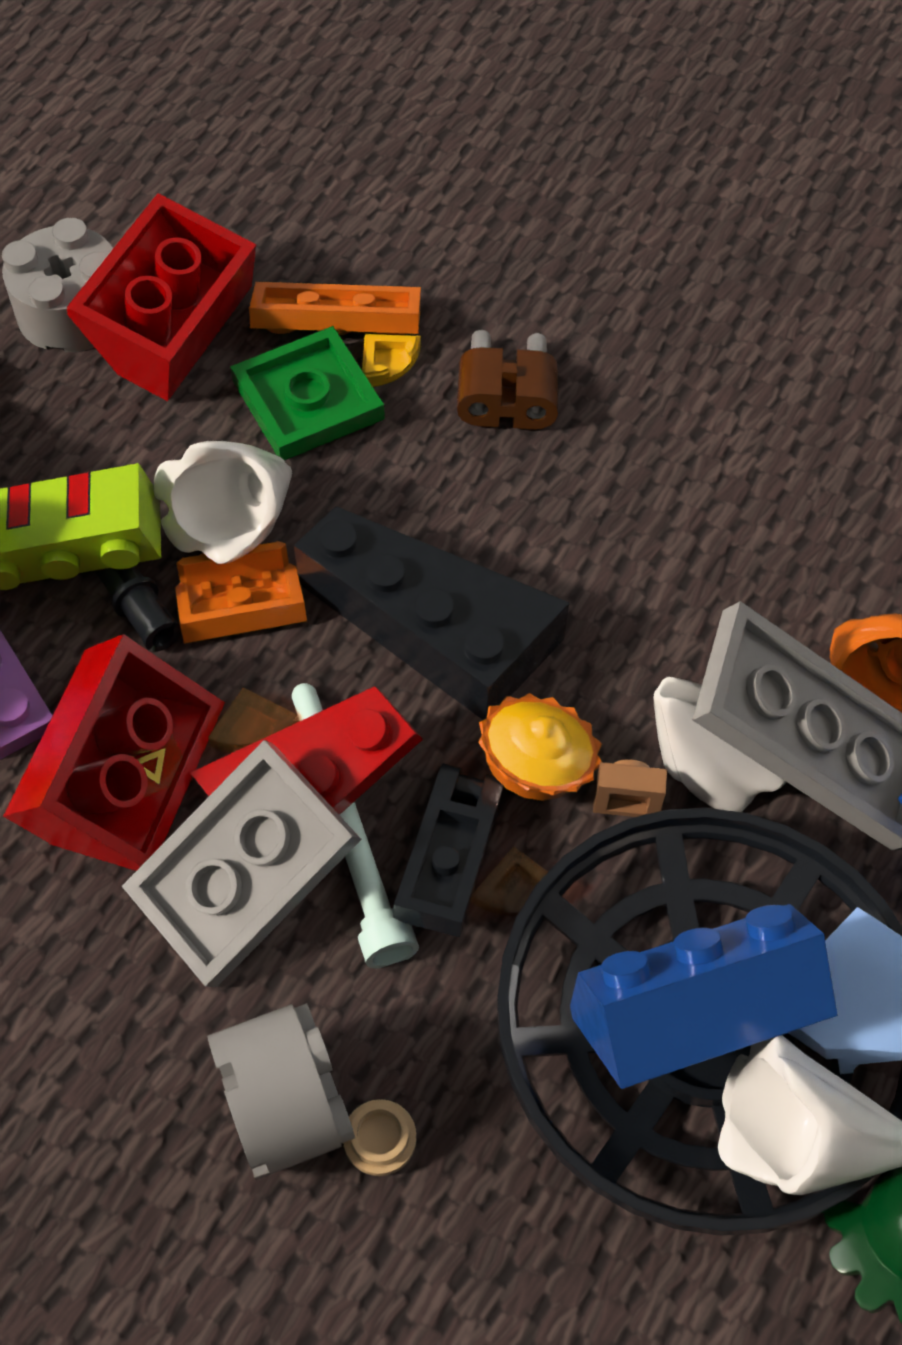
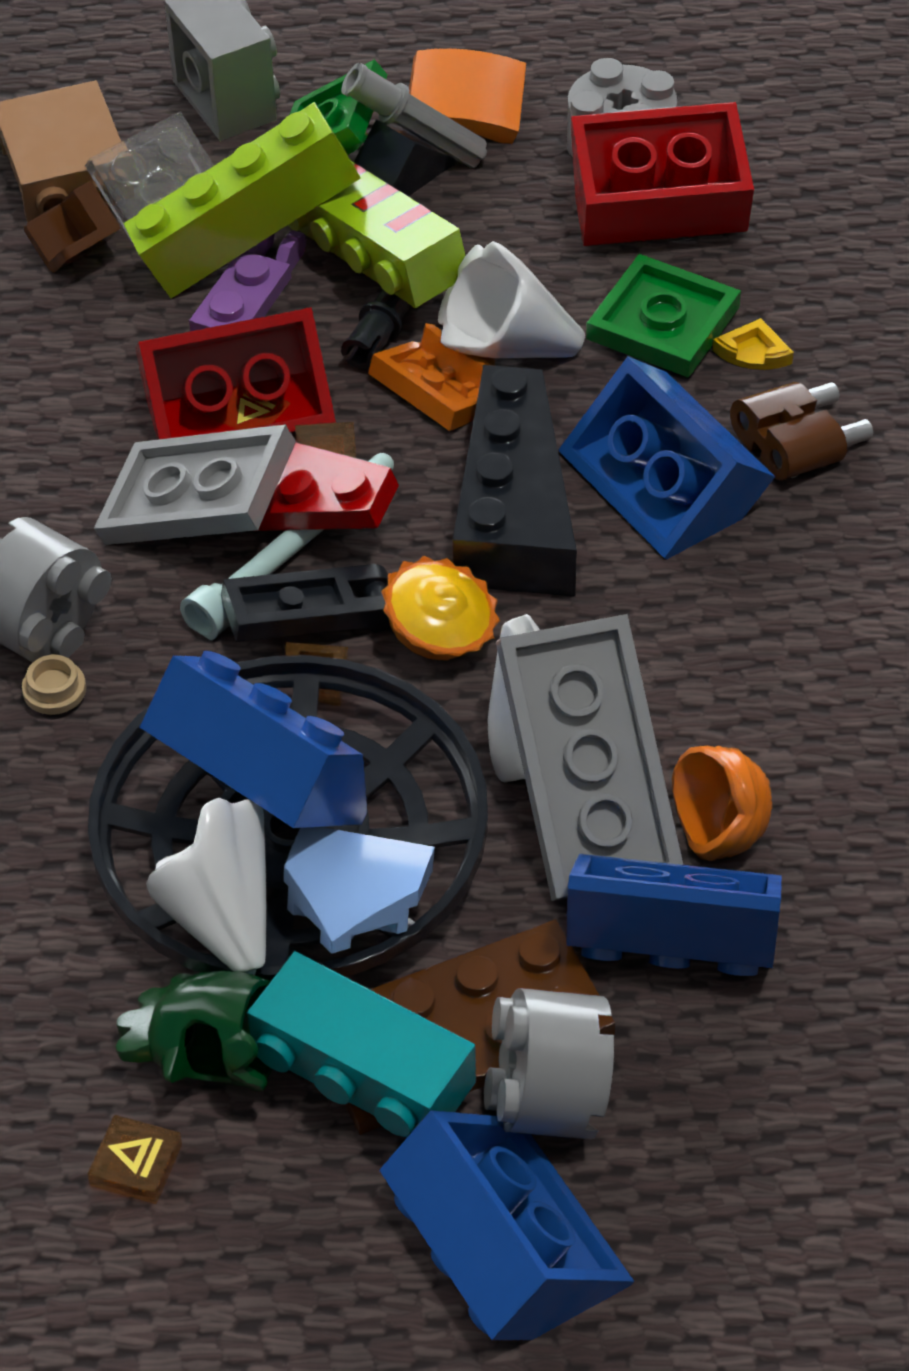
camera: 60 degrees right, 10 degrees down
(348, 308) = (767, 286): orange plate -> none
(482, 487) = (664, 460): none -> blue slope
(629, 788) = (453, 685): medium nougat plate -> none

